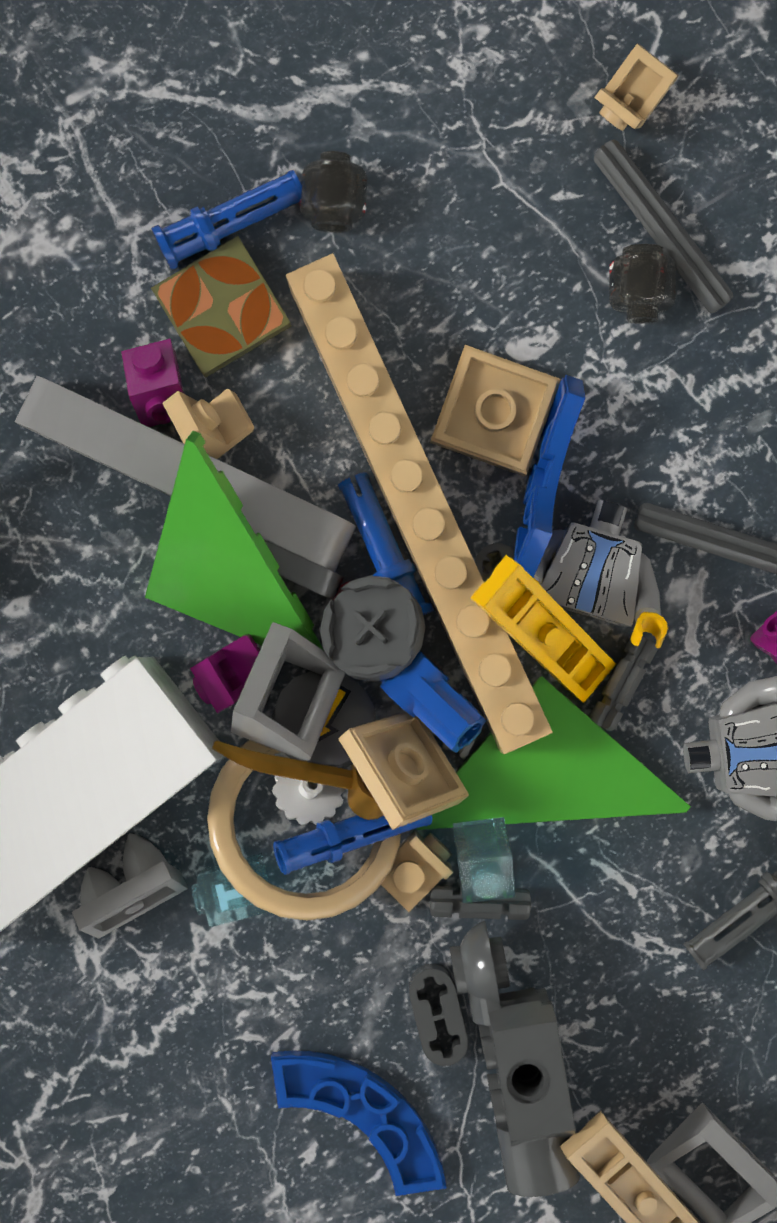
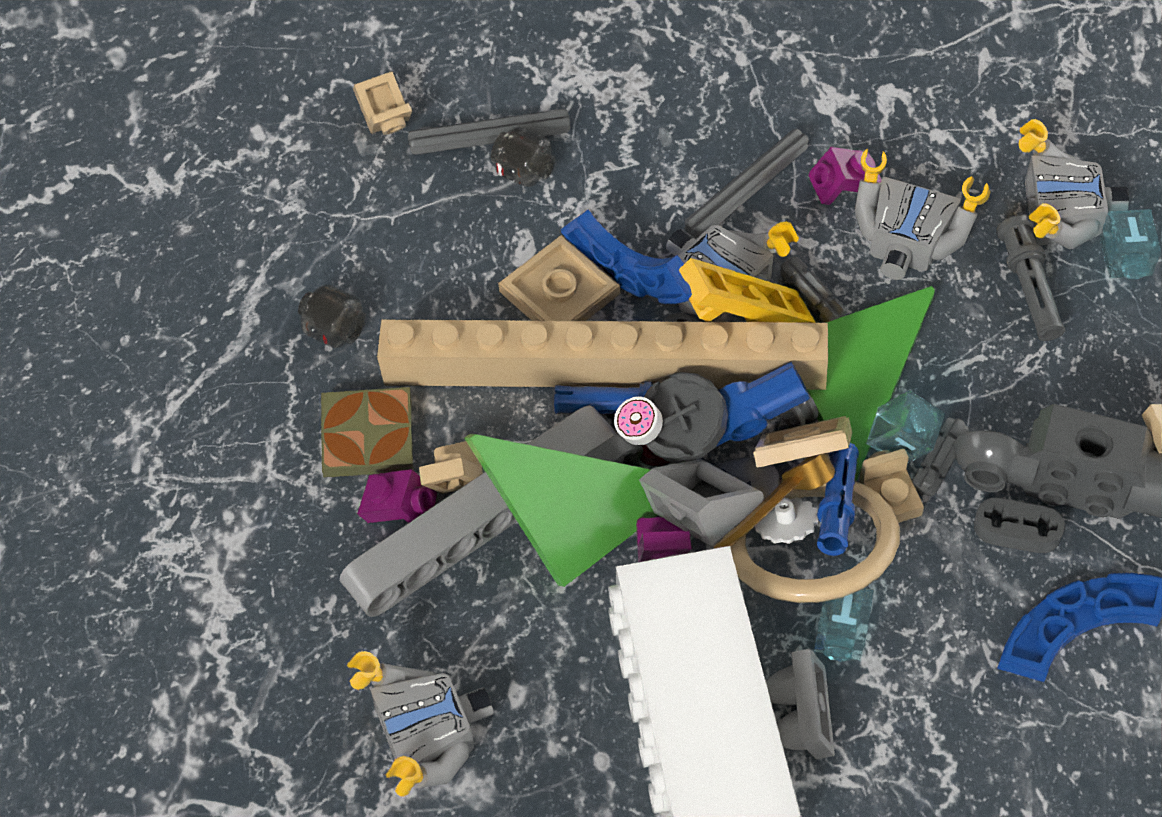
camera: 65 degrees left, 30 degrees down
(285, 192) = (301, 410): blue pin -> none
(341, 586) = (638, 420): none -> tile

